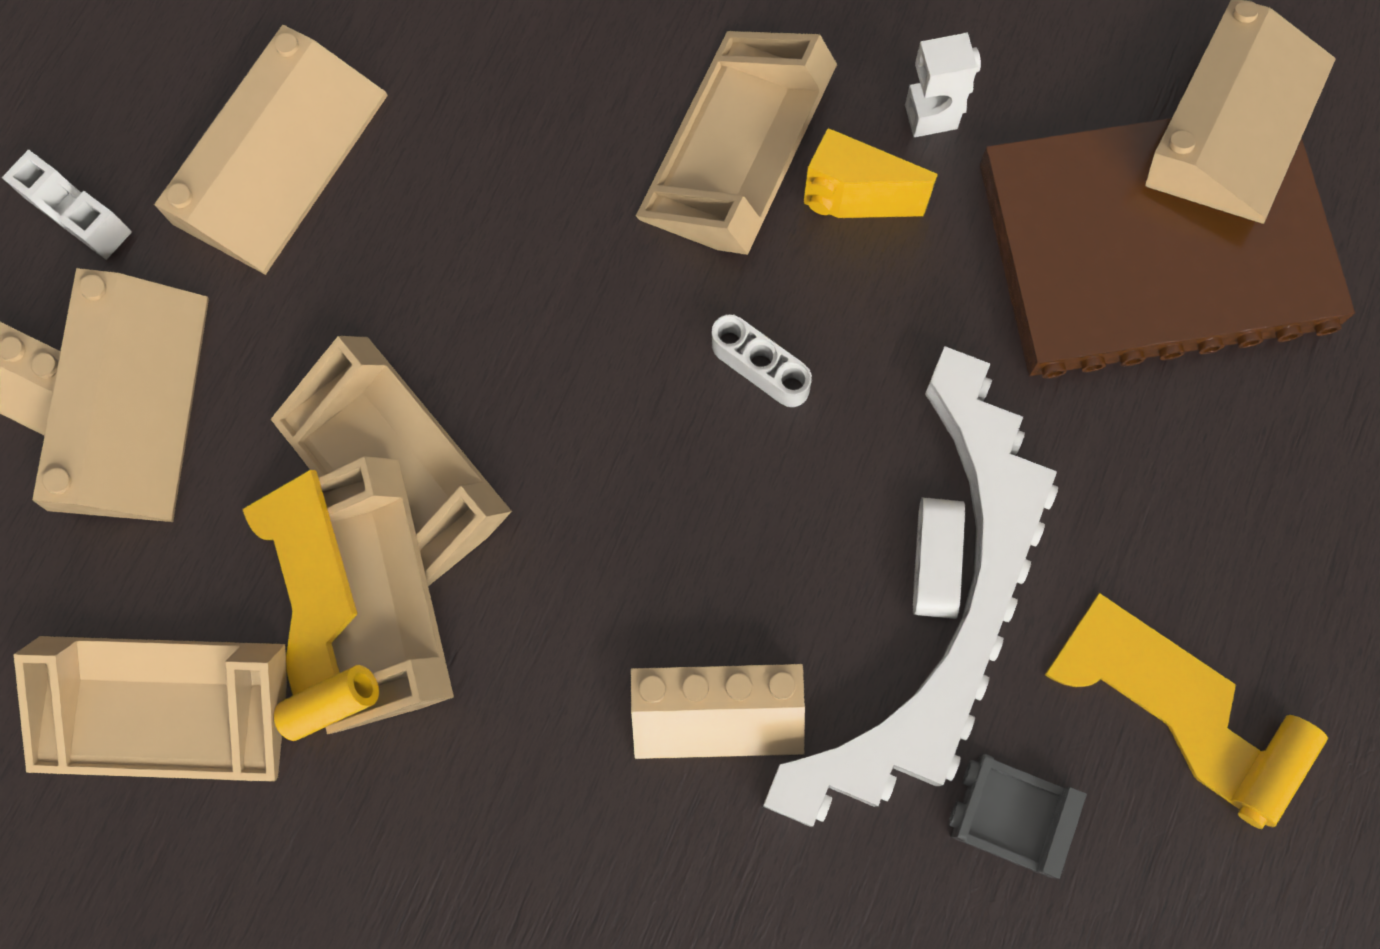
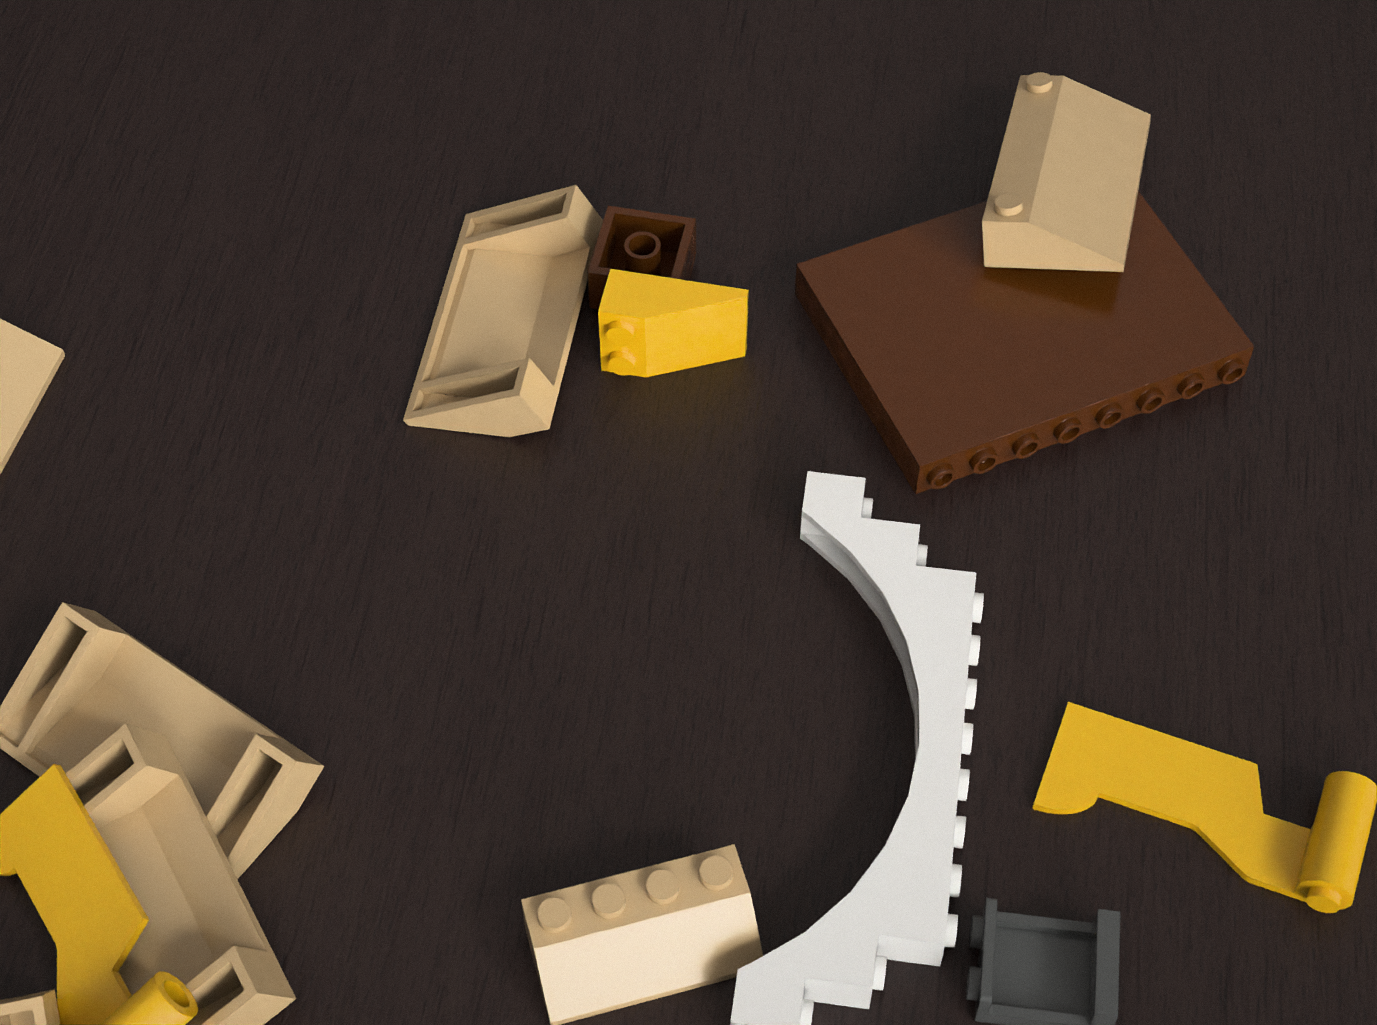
camera: 20 degrees left, 20 degrees down
(752, 344) = (610, 553): white beam -> none
(860, 107) = (641, 244): none -> reddish brown brick
(939, 558) = (867, 703): white beam -> none
(946, 78) = (731, 192): white arch -> none

